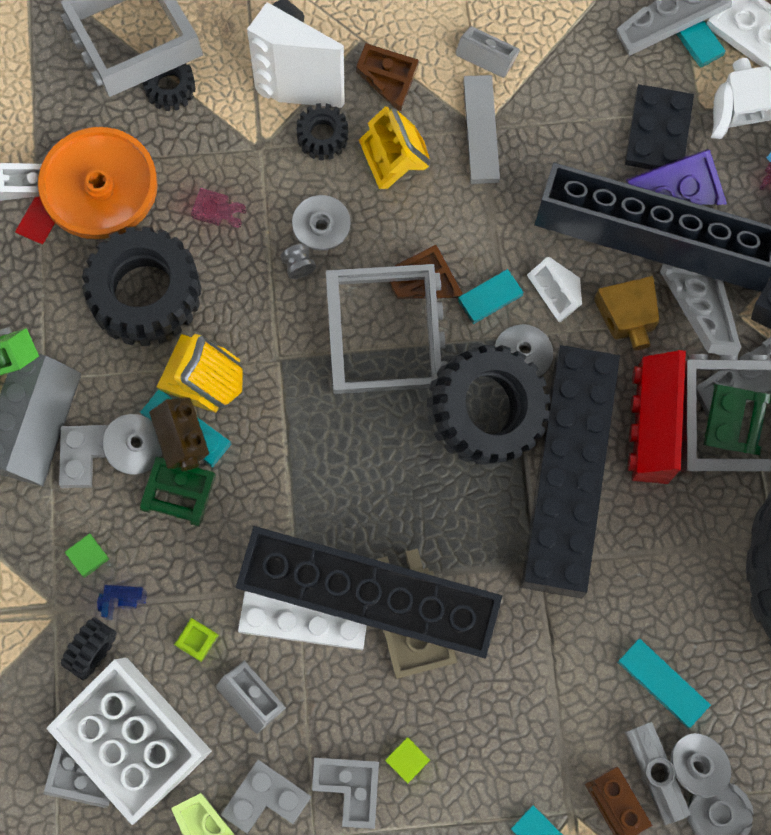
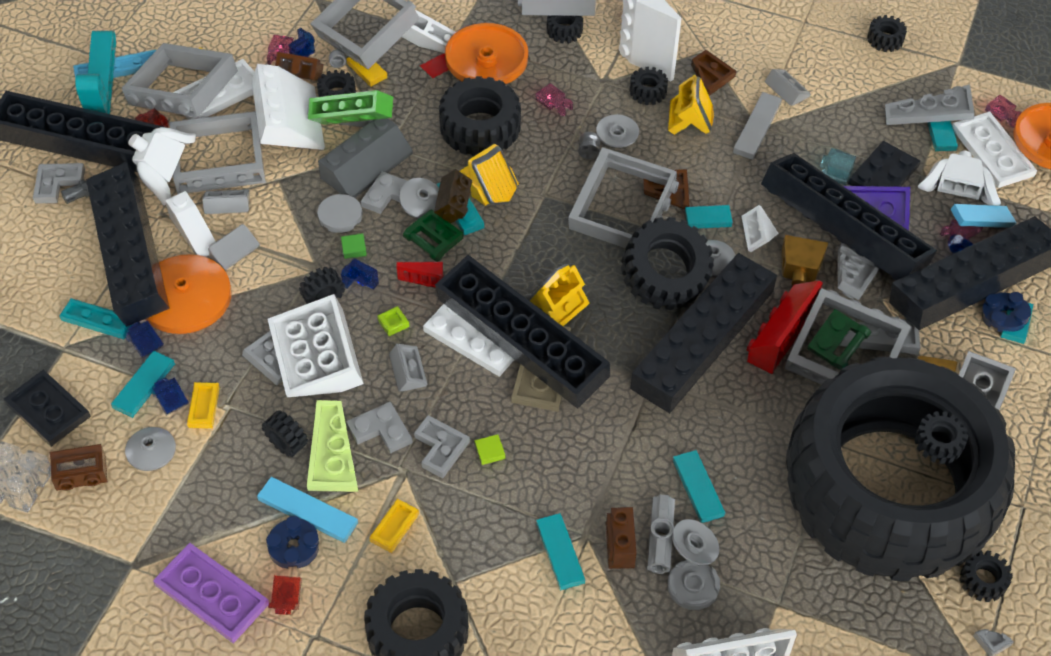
camera: 30 degrees right, 20 degrees down
(41, 515) = (339, 213): none -> light grey tile
(202, 554) = (420, 272): none -> red slope
(379, 511) = (561, 294): none -> yellow piece
(605, 149) = (838, 165): none -> clear light blue brick

